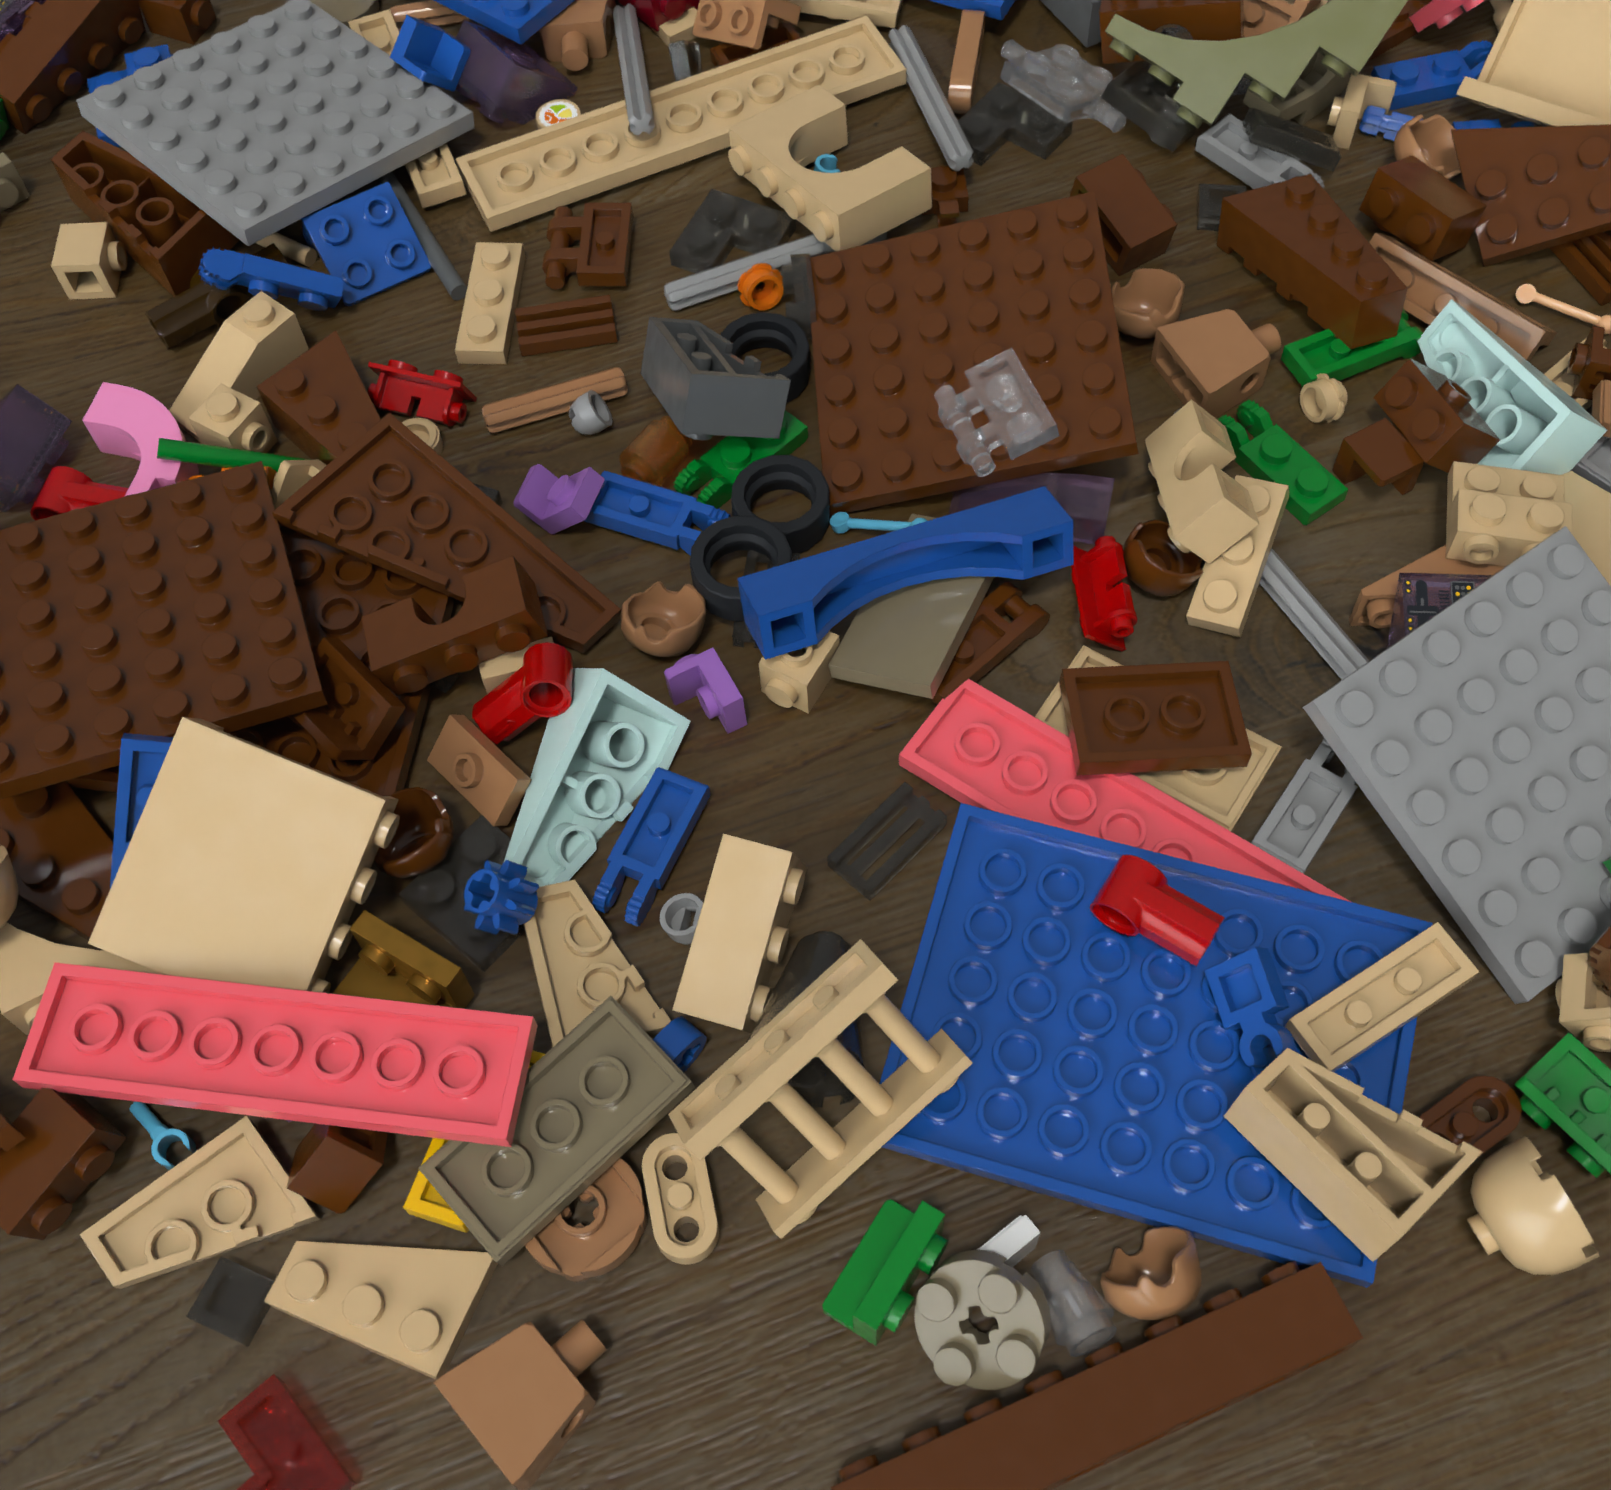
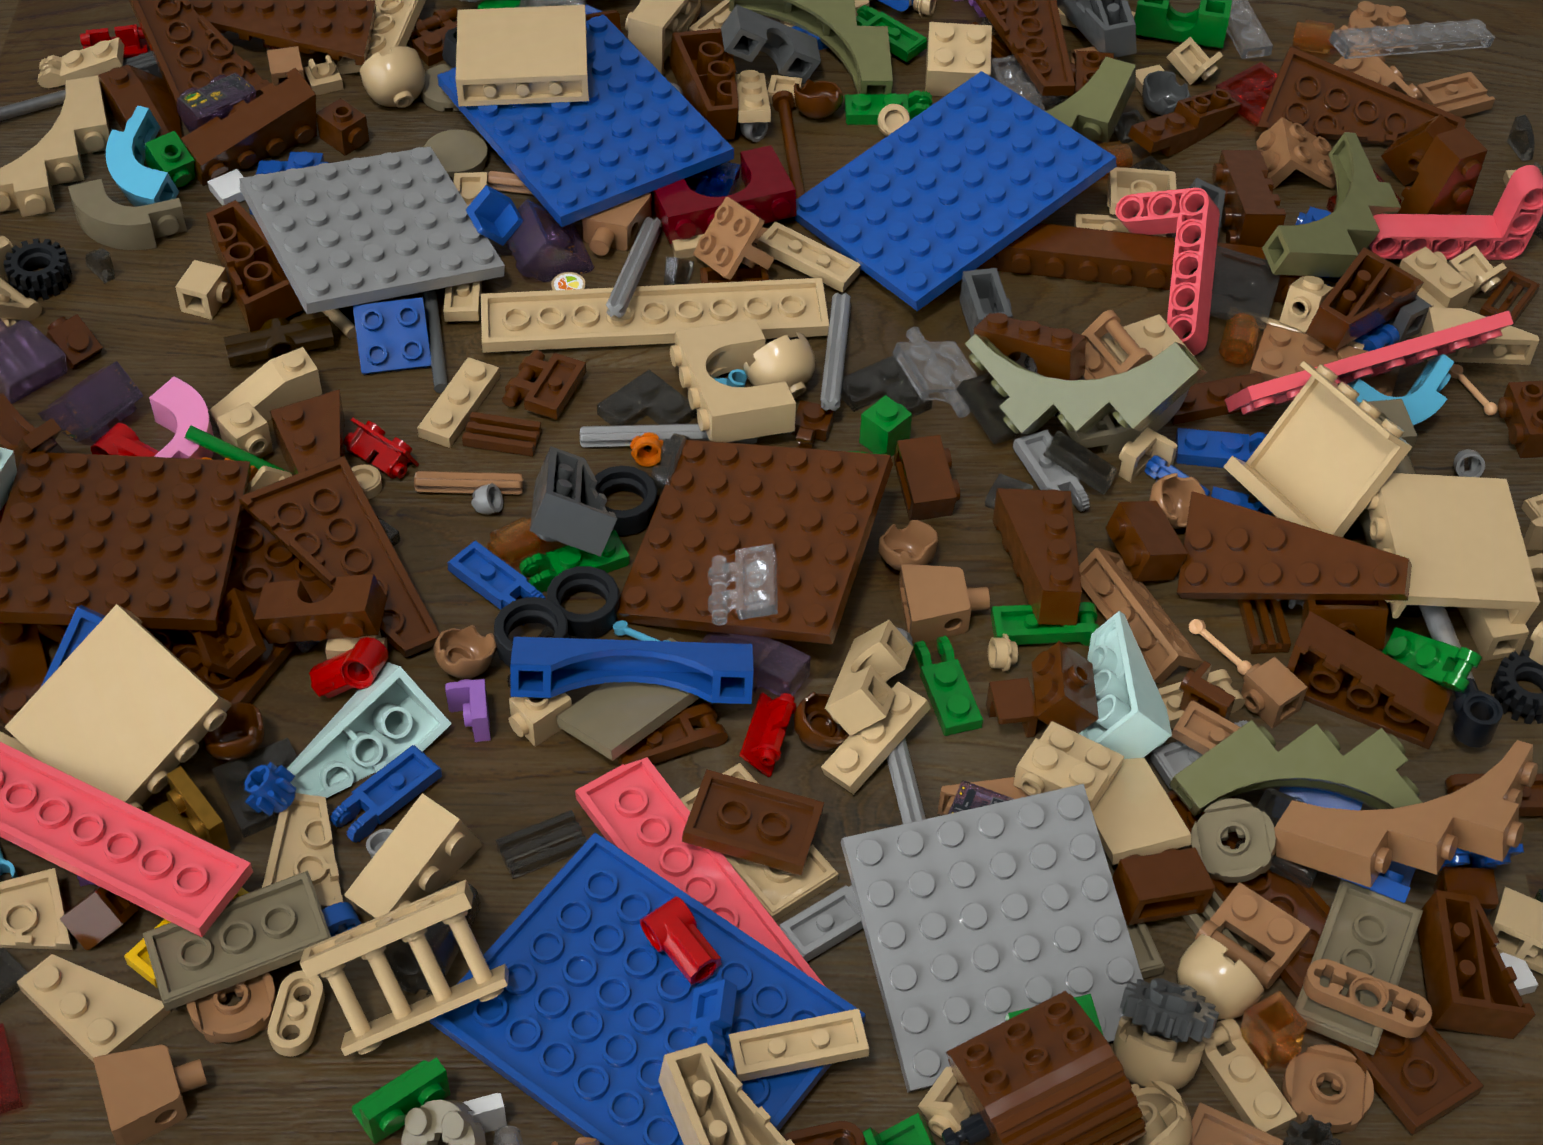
camera: 15 degrees right, 10 degrees down
(60, 124) = (227, 187): none -> white tile
(274, 278) = (312, 340): blue hinge -> none
(478, 770) = (298, 708): medium nougat plate -> none
(558, 501) = (432, 549): medium lavender bracket -> none
(878, 127) = (781, 362): none -> tan cylinder
(966, 61) = (877, 332): medium nougat beam -> none
(1039, 168) = (884, 425): none -> green brick

